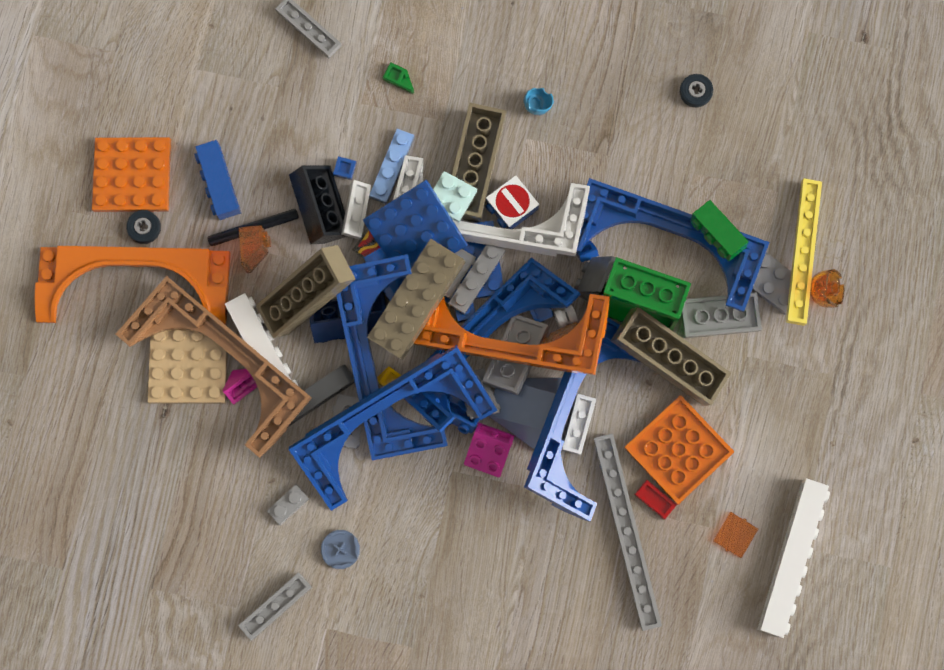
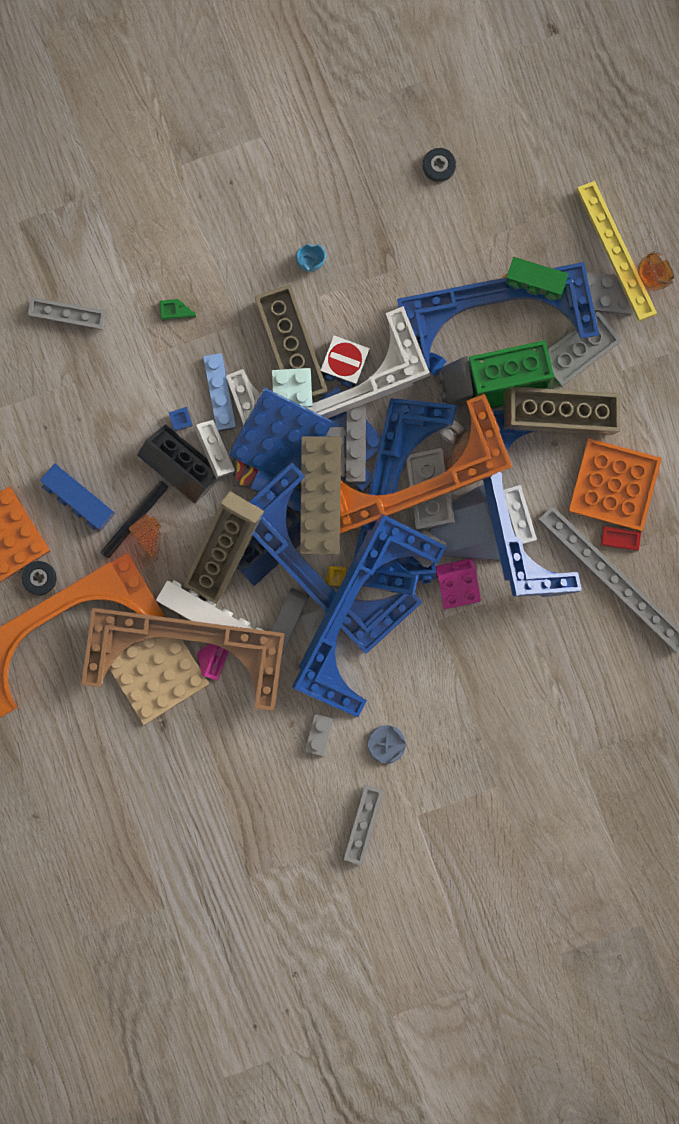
camera: 40 degrees left, 5 degrees up
(542, 314) = (430, 442): blue plate -> none

